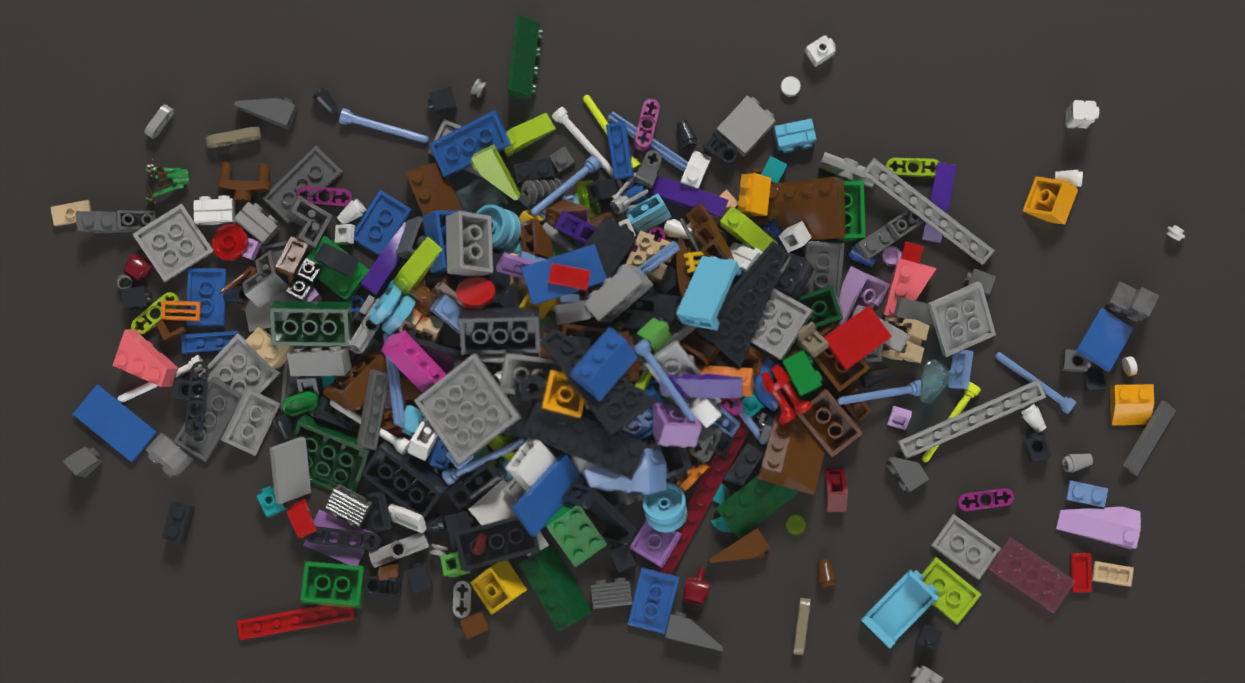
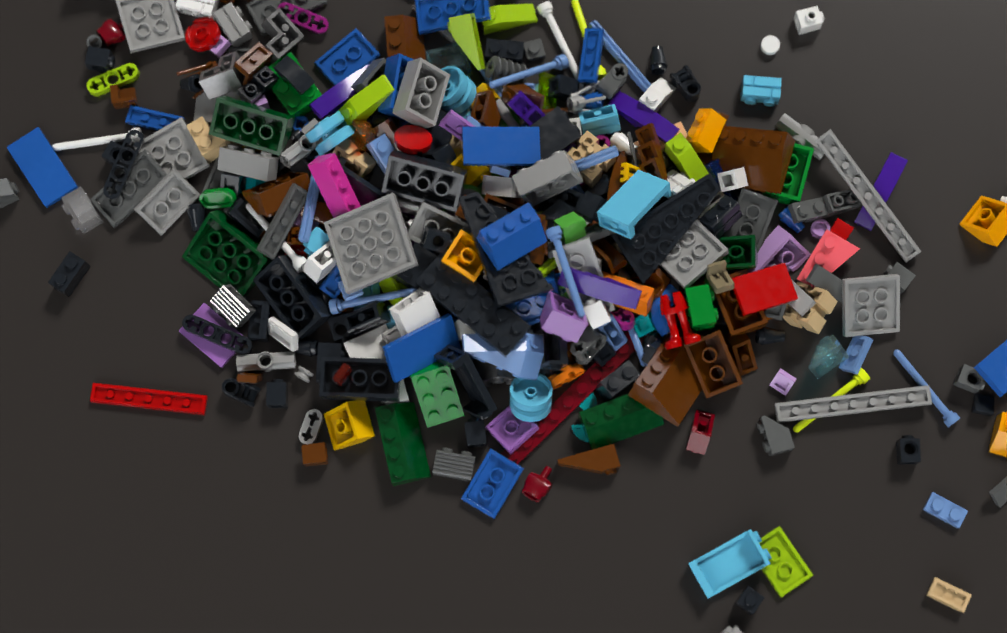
camera: 20 degrees right, 5 degrees down
(143, 360) = (87, 116): coral wedge -> none
(181, 318) = (125, 86): orange tile -> none
(204, 287) = (161, 81): blue tile -> none
(268, 502) = (162, 281): teal brick -> none
(290, 470) = (188, 255): light grey tile -> none
(301, 518) = (184, 304): red slope -> none
(333, 584) = (193, 375): green brick -> none
(344, 234) = (310, 58): white tile -> none
(351, 212) = (323, 40): white cone -> none
(452, 565) = (310, 391): bright green brick -> none
(569, 277) = (505, 148): red tile -> none
(641, 130) = (623, 32): magenta beam -> none
(687, 631) = (514, 521): dark grey slope -> none
(746, 125) = (717, 68): light grey brick -> none
(774, 169) = (732, 114): teal panel -> none
(795, 524) = (651, 453): clear neon green plate -> none
(801, 626) = (628, 552): dark tan beam -> none
(826, 575) = (667, 512): reddish brown cone -> none
(899, 162) = (880, 151): lime beam -> none
(913, 388) = (804, 357): medium blue piece -> none
(965, 547) = (811, 525): light grey tile -> none
(970, 496) = (857, 492): magenta beam -> none
(1031, 574) = (868, 571): clear pink plate -> none
(1033, 417) = (913, 419): white cone -> none
(1075, 462) = (941, 475): light grey cone -> none
(1081, 572) = (917, 584): red tile -> none
(1109, 524) = (958, 546): lavender wedge -> none

